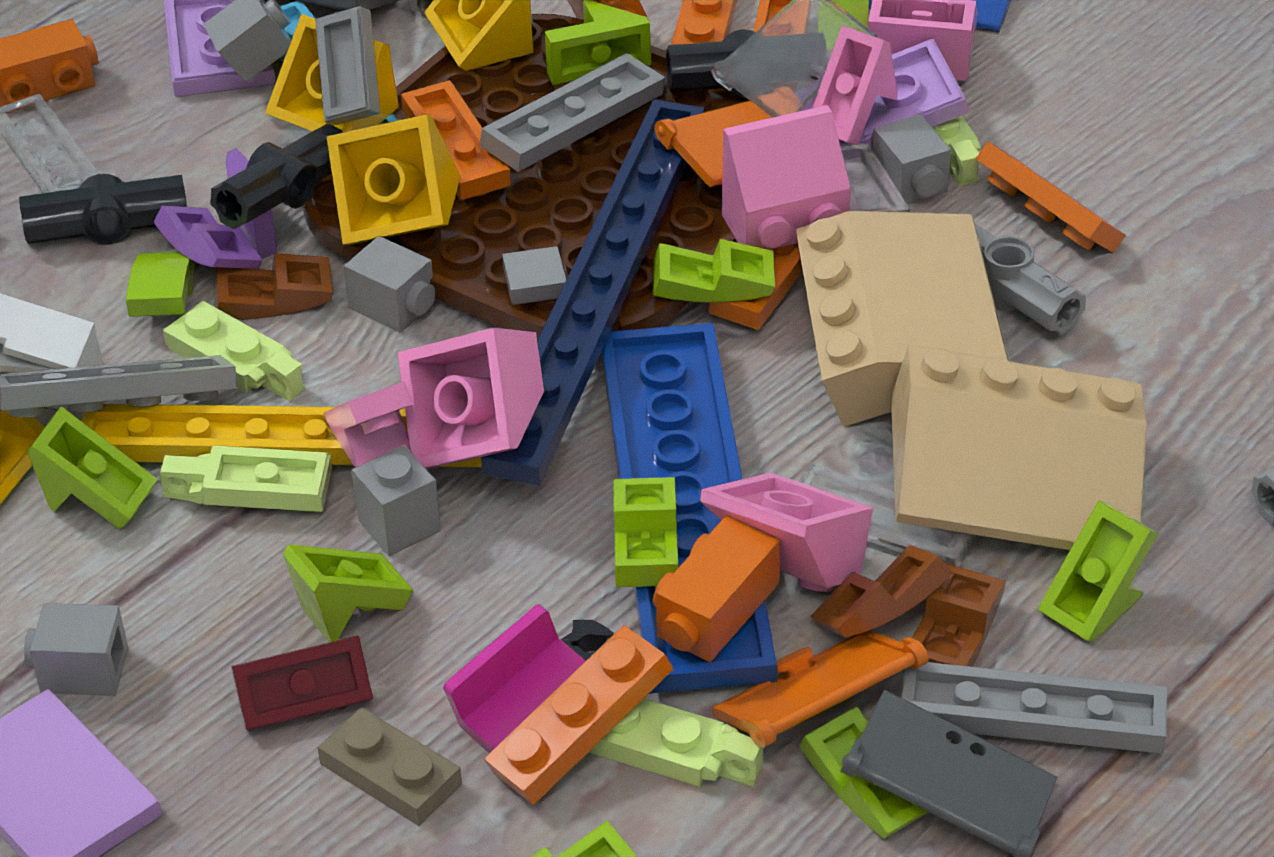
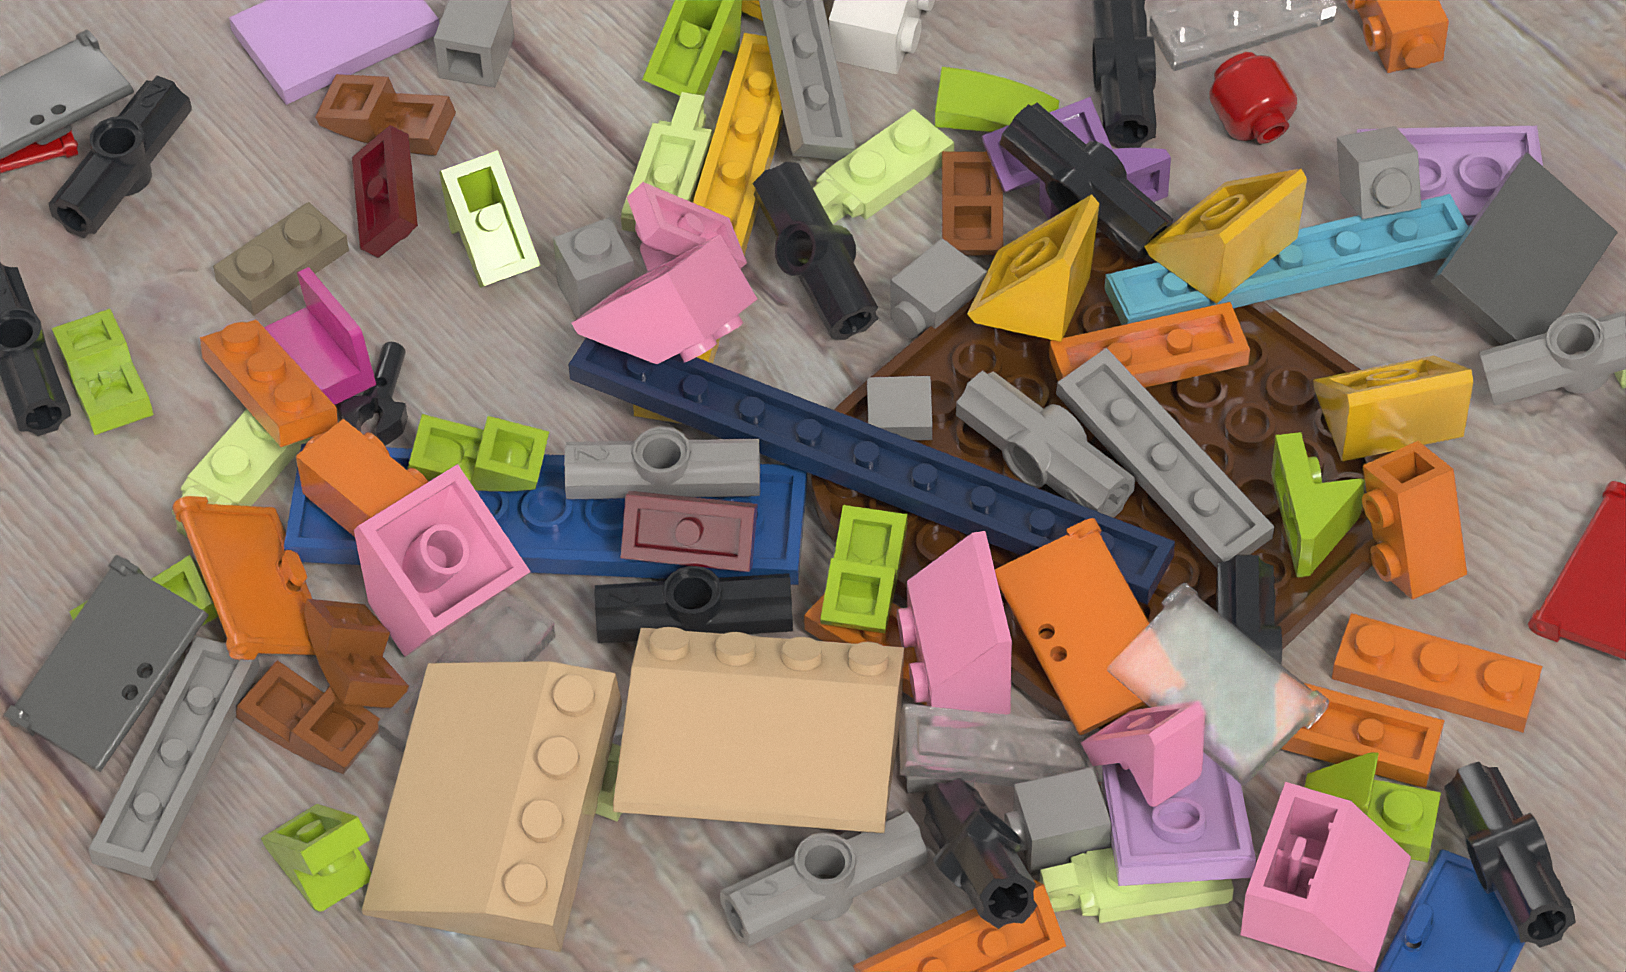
camera: 100 degrees right, 10 degrees up
(145, 131) = (1253, 97): none -> red head
(184, 713) = (368, 104): none -> dark orange slope
(325, 364) = (815, 250): none -> black piece
(347, 66) = (1208, 212): light grey tile -> none
(565, 182) = (1044, 445): none -> light grey piece
(646, 393) = (662, 464): none -> light grey piece
(708, 369) = (689, 531): none -> plate
(767, 385) = (726, 605): none -> black piece
(981, 163) = (979, 853): none -> black piece

